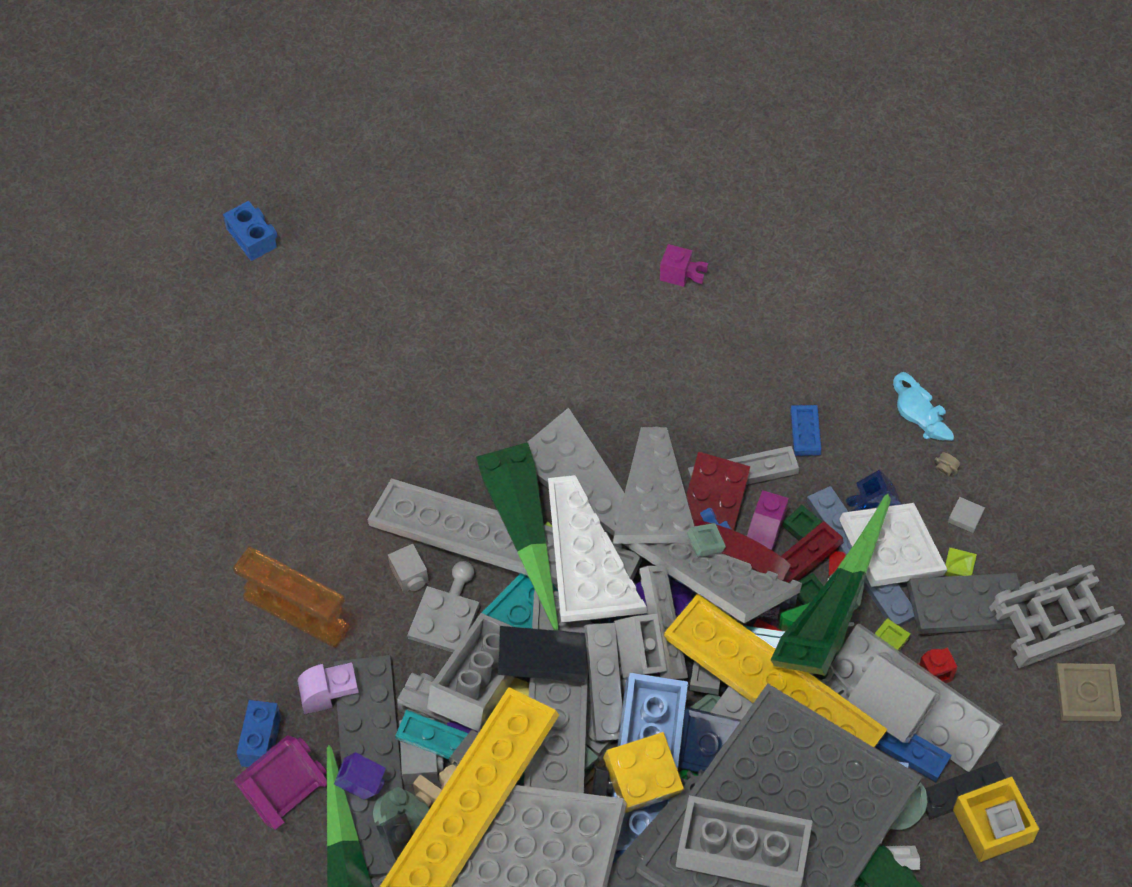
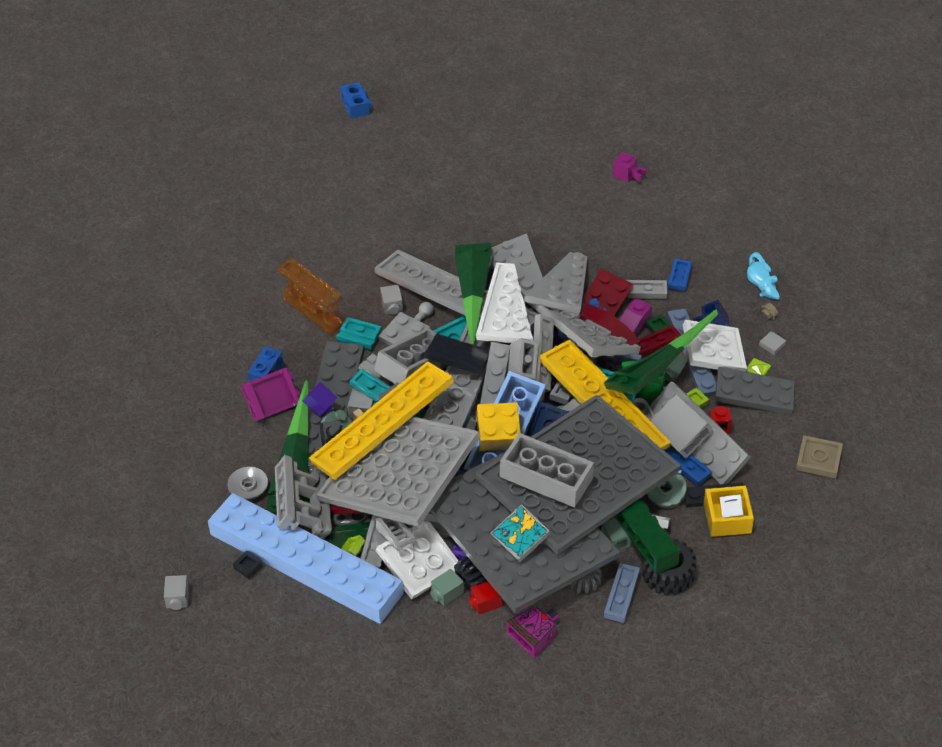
camera: 15 degrees right, 10 degrees down
(321, 685) = (313, 348): lavender brick -> none
(377, 636) = (359, 333): none -> teal plate
(706, 539) = (585, 310): sand green plate -> none
(1066, 634) = (811, 420): light grey fence -> none

